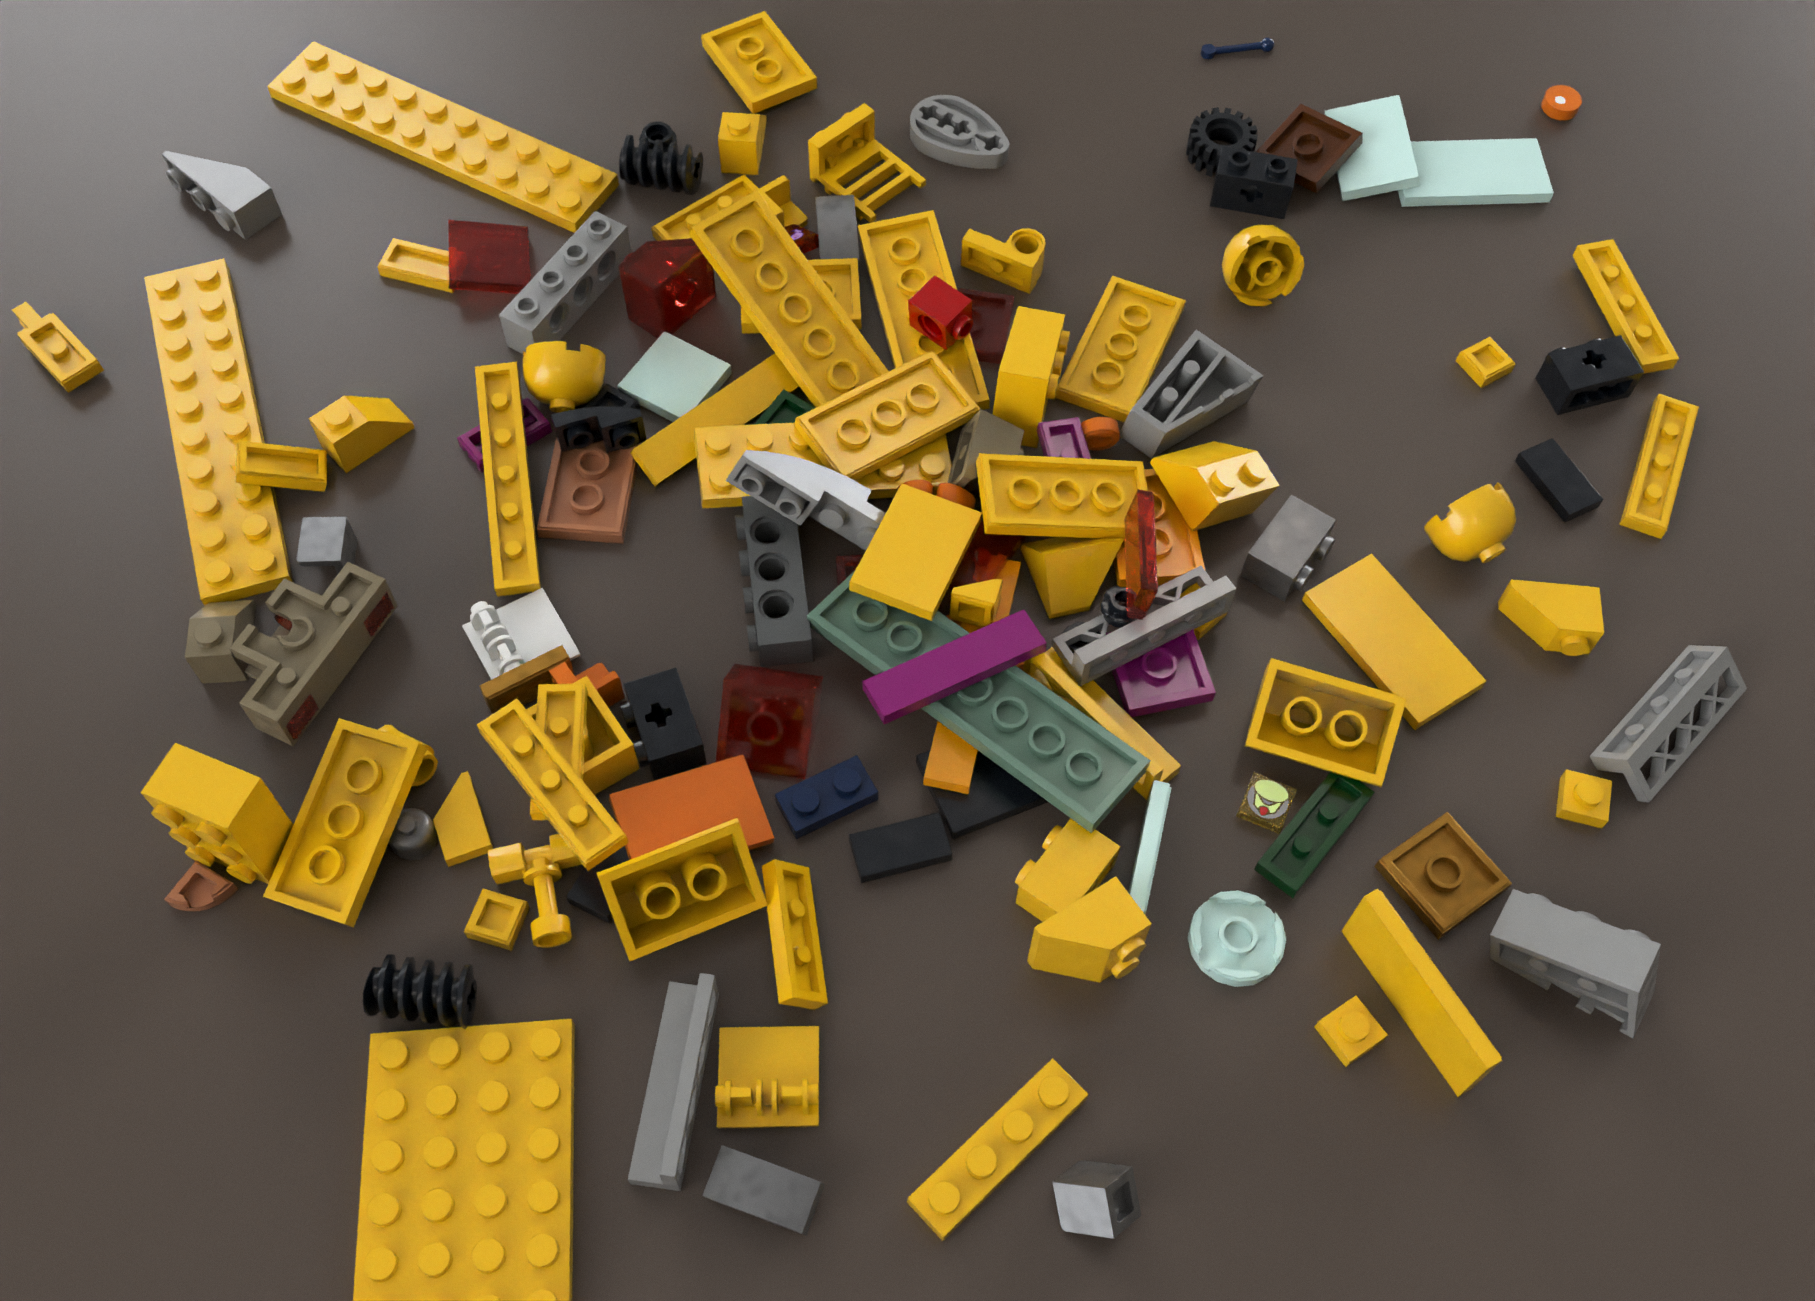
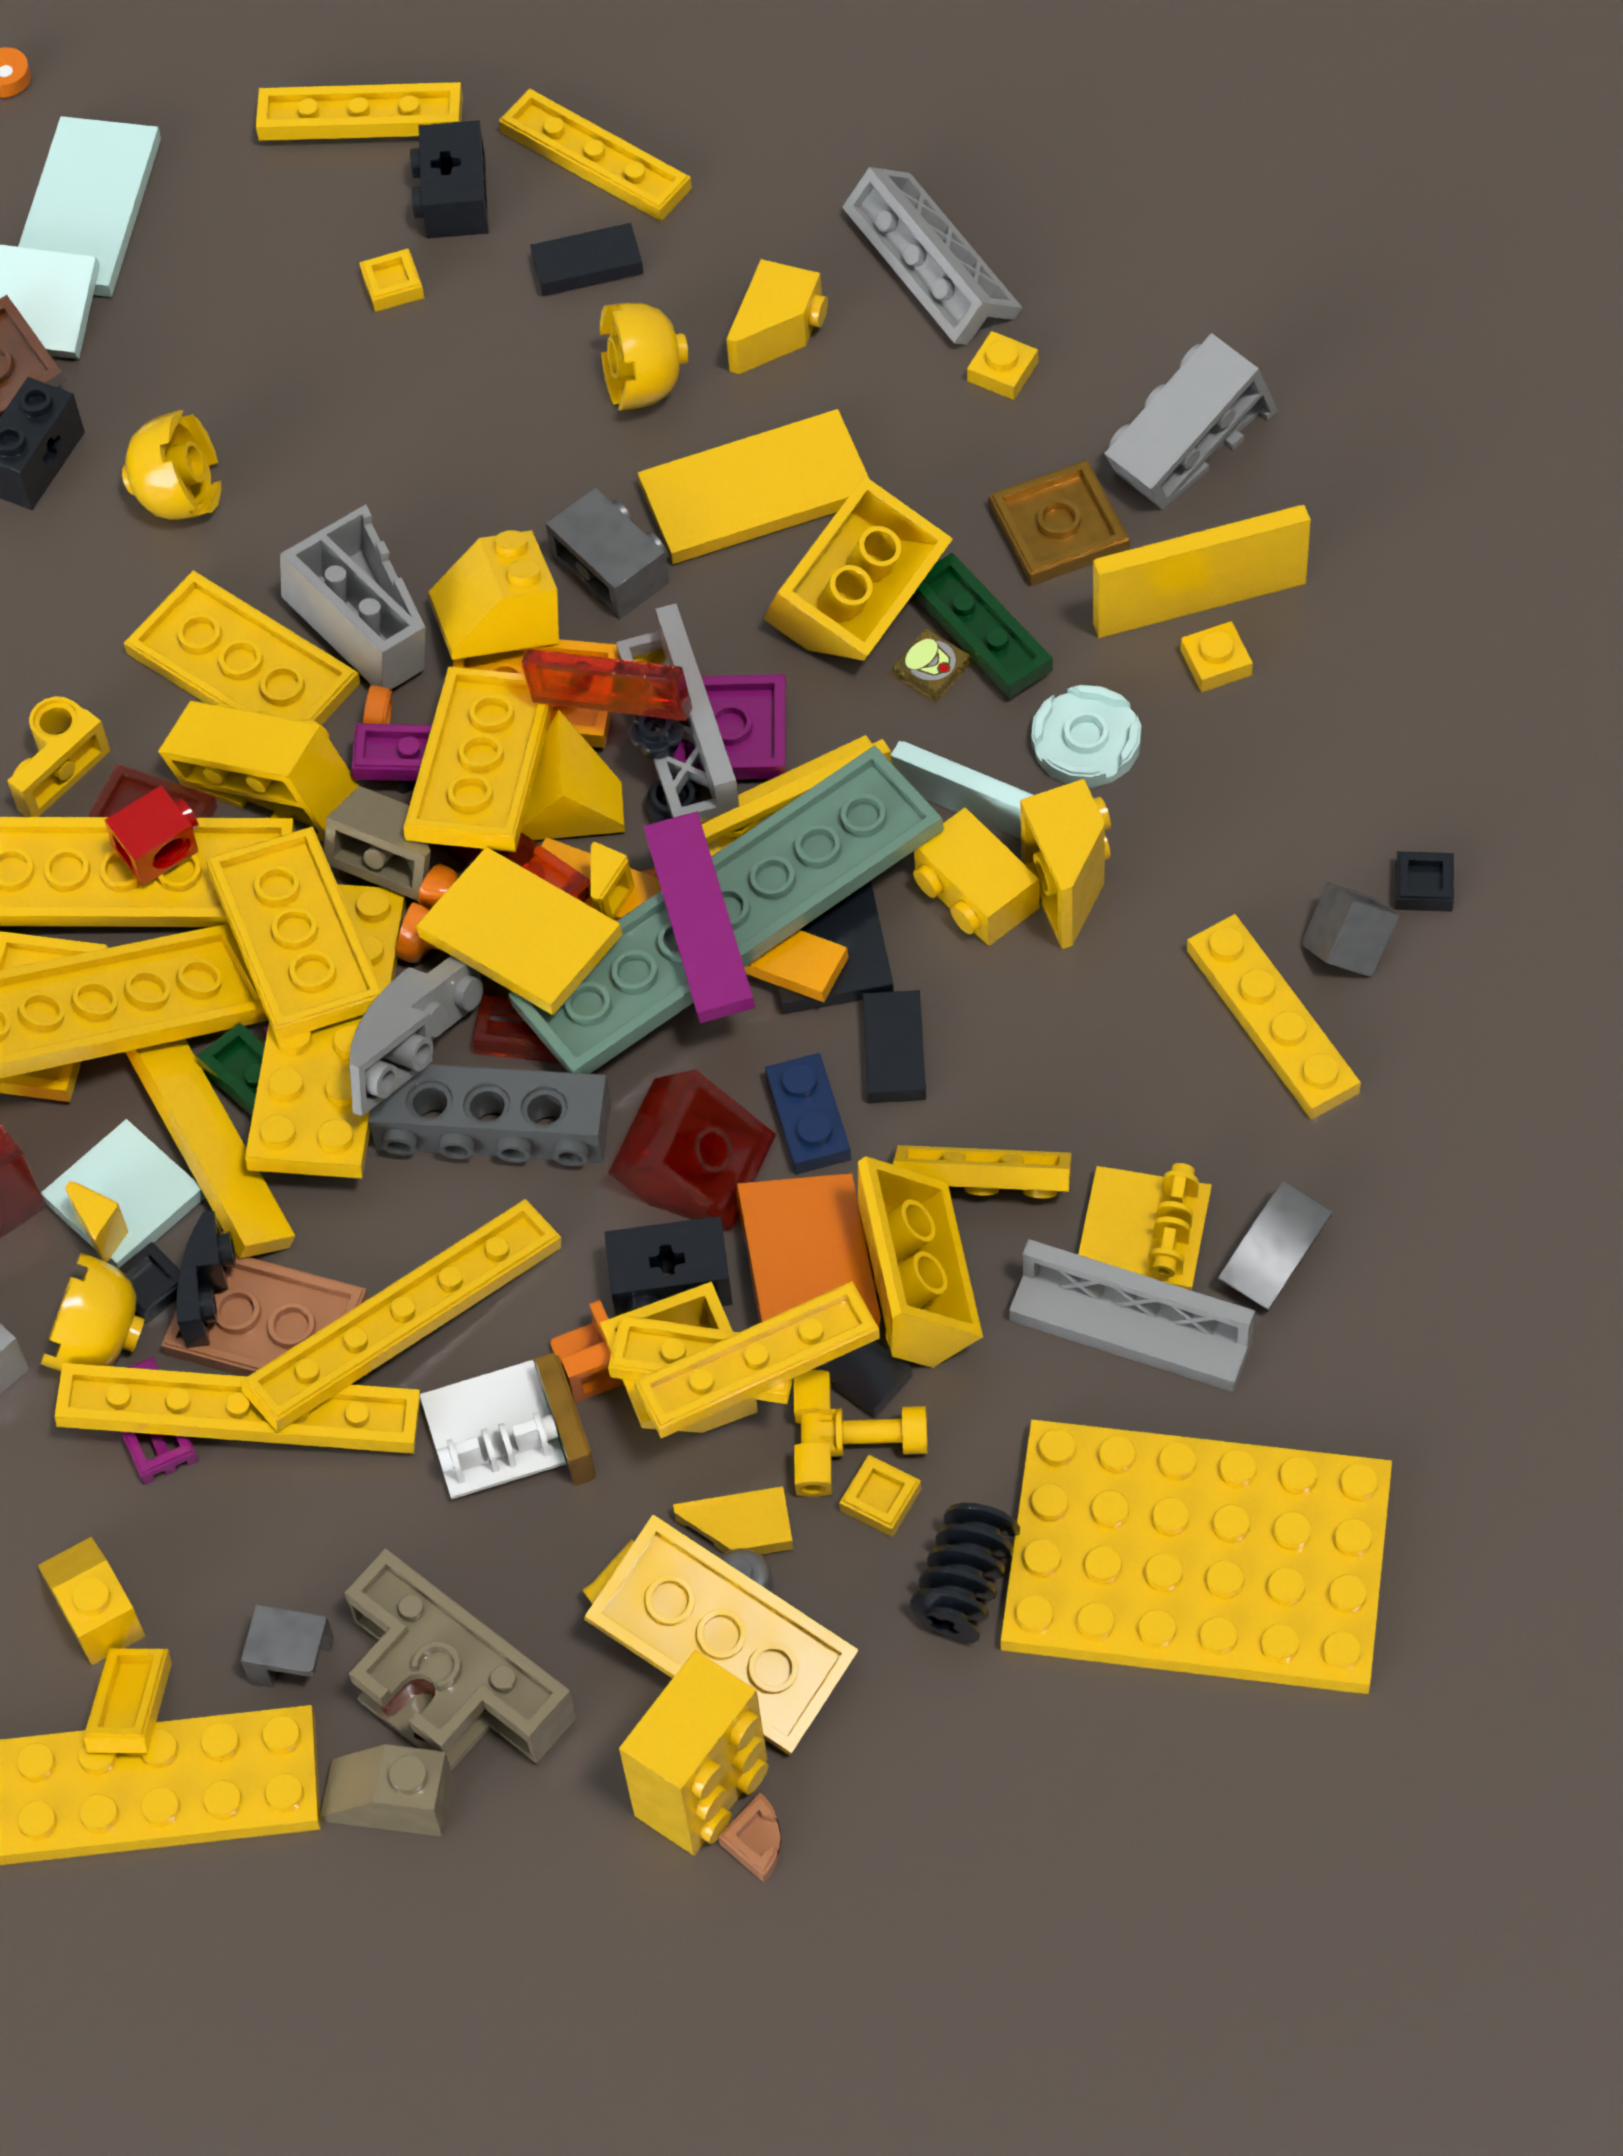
camera: 70 degrees left, 0 degrees up
(598, 559) = (400, 1315): none -> yellow tile
(635, 358) = (99, 1218): none -> yellow slope
(1172, 1261) = (1424, 881): none -> black tile

